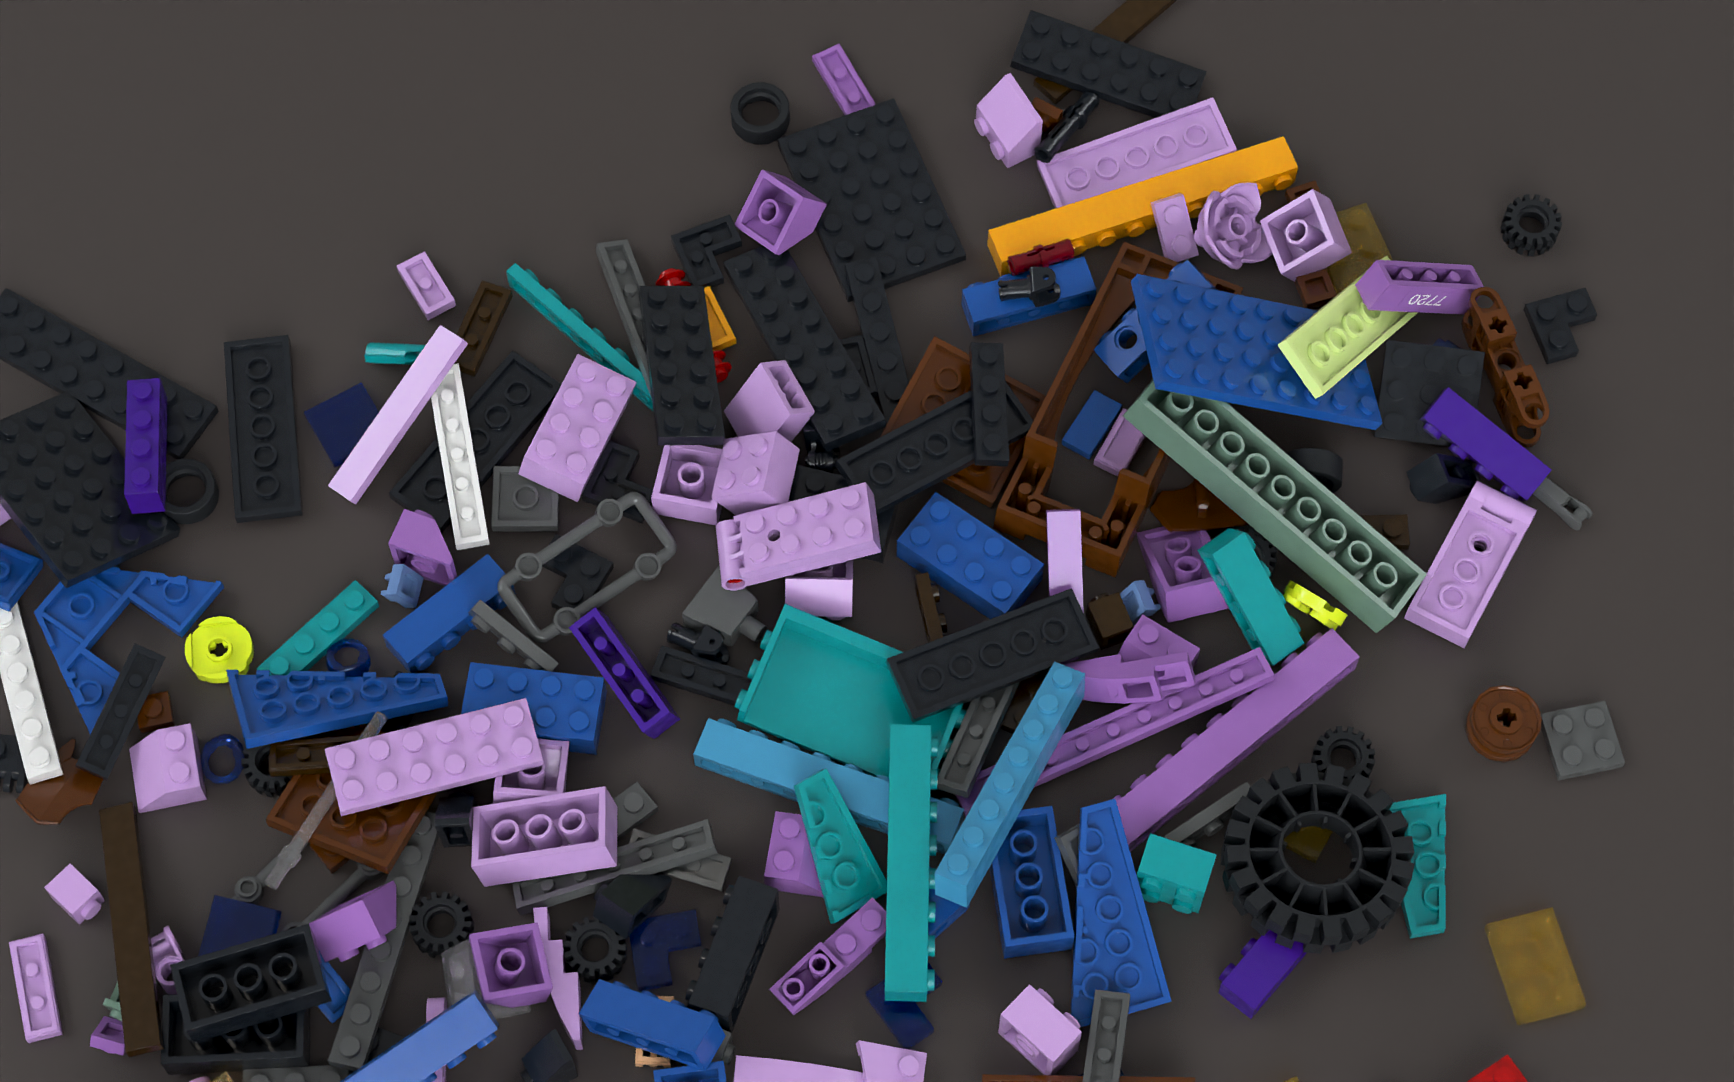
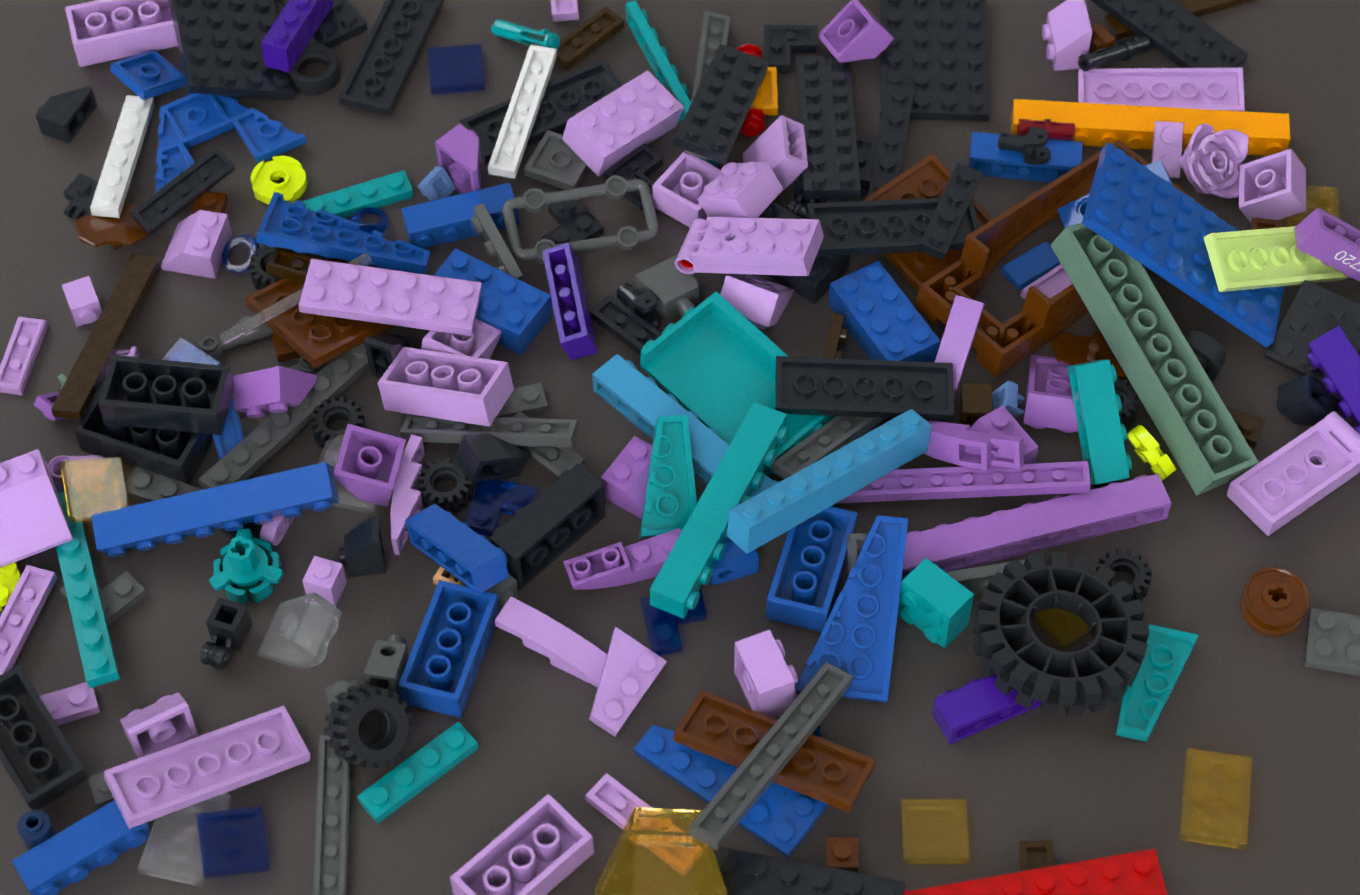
camera: 25 degrees right, 10 degrees down
(397, 414) = (493, 68): lavender tile -> none

